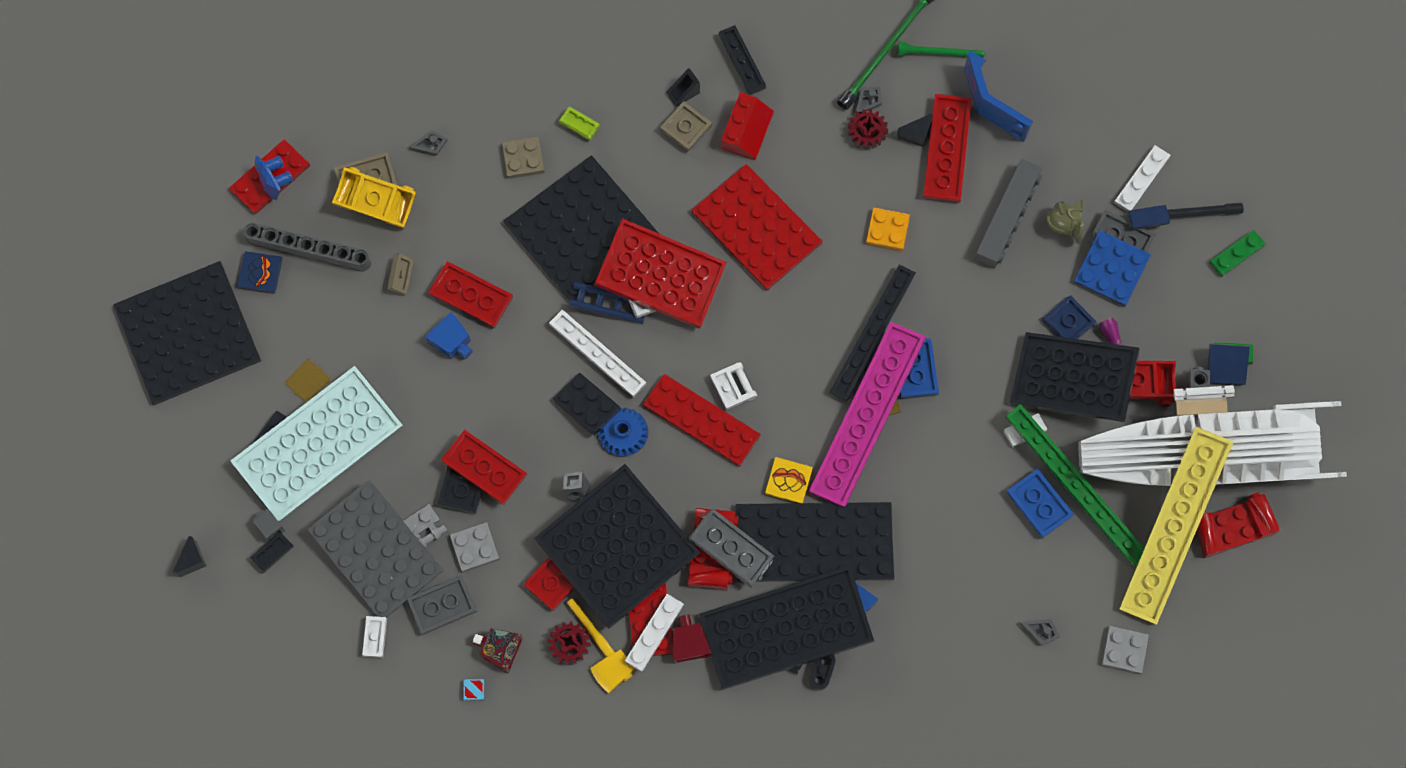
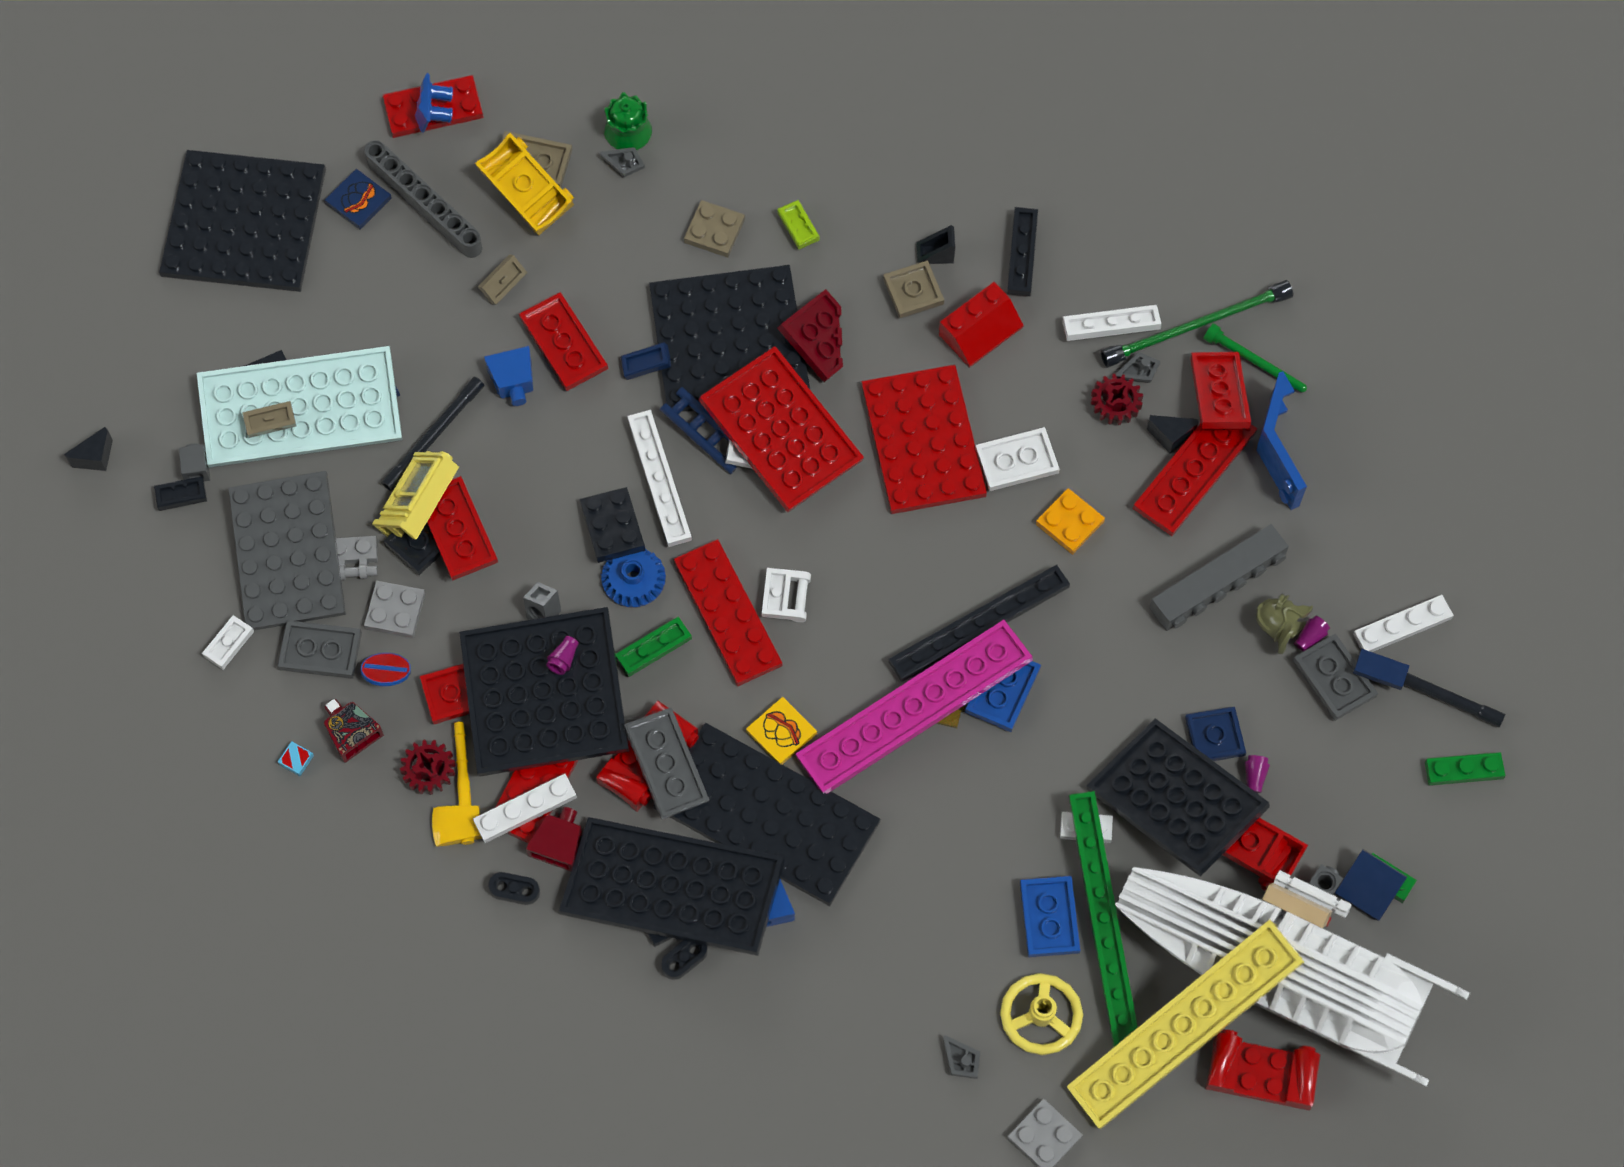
camera: 30 degrees right, 5 degrees down
(304, 464) = (269, 419): none -> dark tan plate
(307, 380) = (335, 336): clear yellow piece -> none
(415, 450) = (466, 395): none -> black piece
(416, 115) = (627, 123): none -> green hat
(441, 459) = (417, 494): none -> light yellow door
(497, 592) = (385, 669): none -> red piece
(536, 277) = (646, 361): none -> dark blue tile
(617, 515) = (561, 658): none -> magenta cone
(641, 194) = (817, 334): none -> dark red plate
(668, 471) = (653, 646): none -> green plate
(680, 691) = (515, 886): none -> black plate
(828, 206) = (1017, 459): none -> white plate
(832, 77) = (1111, 322): none -> white plate
(933, 85) = (1220, 390): none -> red plate
(1077, 563) = (1044, 1003): none -> light yellow piece
(1090, 215) = (1313, 632): none -> magenta cone
(1112, 267) = (1302, 702): blue plate -> none

